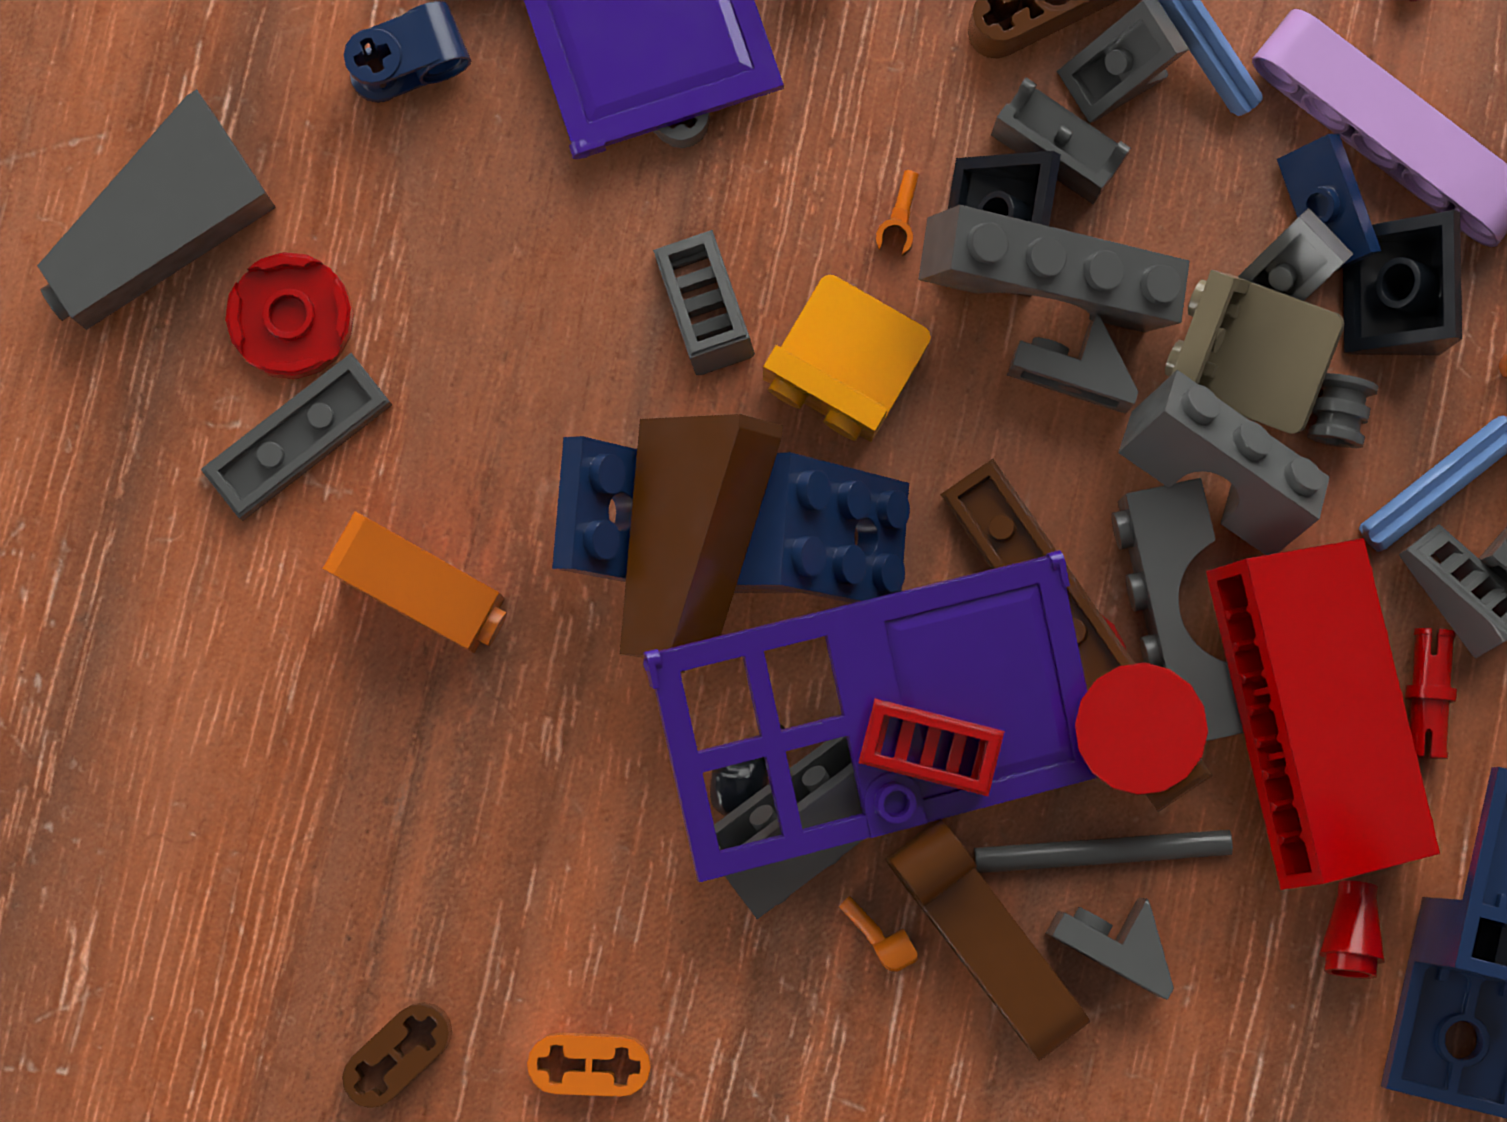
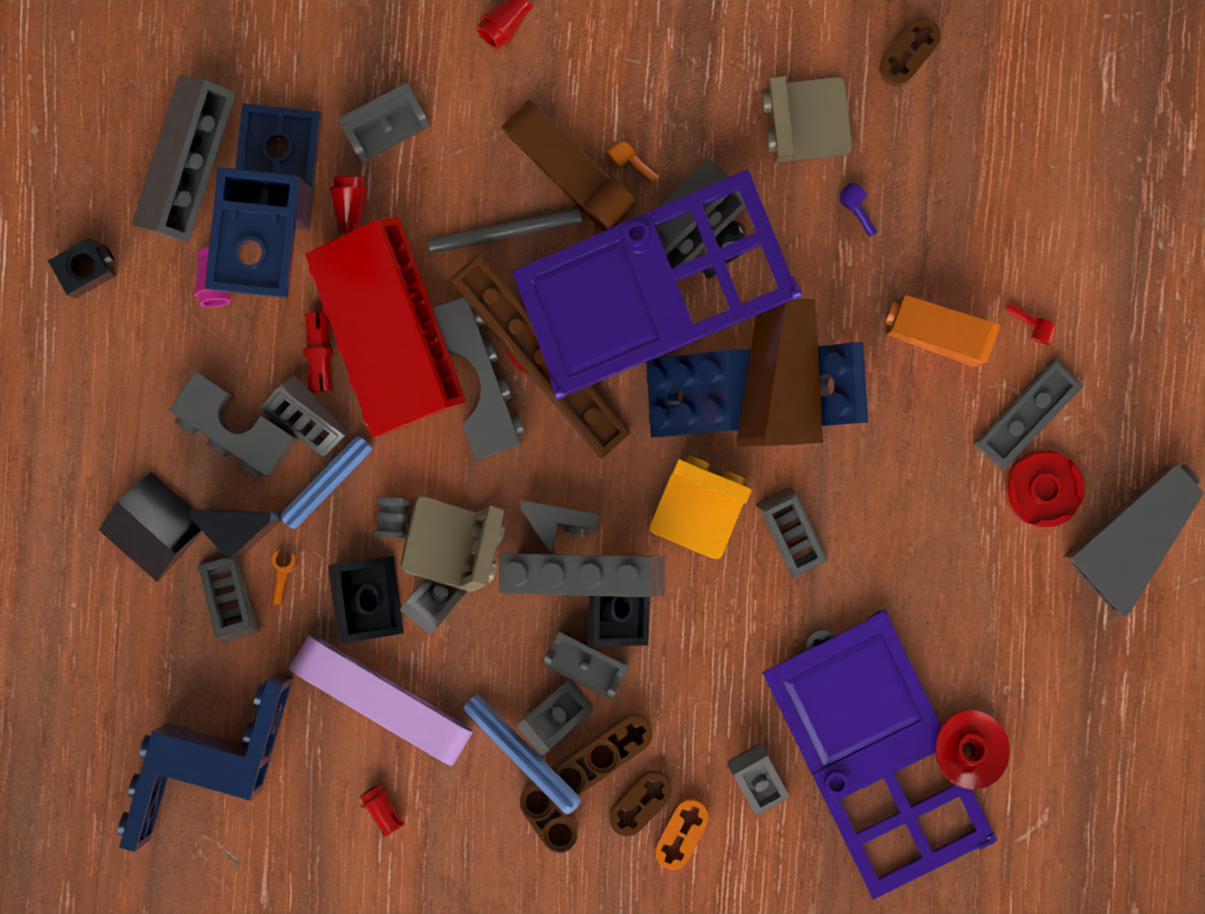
camera: 170 degrees right, 5 degrees up
(250, 566) = (1044, 329): none -> red hand
(414, 50) = (991, 665): dark blue piece -> none
(528, 826) = (851, 198): none -> dark purple hand
(583, 965) = (806, 119): none -> dark tan bracket
(589, 1081) = (795, 52): orange beam -> none
(901, 212) = (678, 605): orange hand -> none
(985, 759) = (622, 254): red slope -> none
(1134, 952) = (481, 168): dark grey slope -> none
(1141, 728) = (495, 298): red tile -> none
(1191, 430) = (485, 484): dark grey arch -> none
(1281, 1056) = (384, 122): none -> dark grey hinge
(1323, 181) = (415, 649): dark blue plate -> none

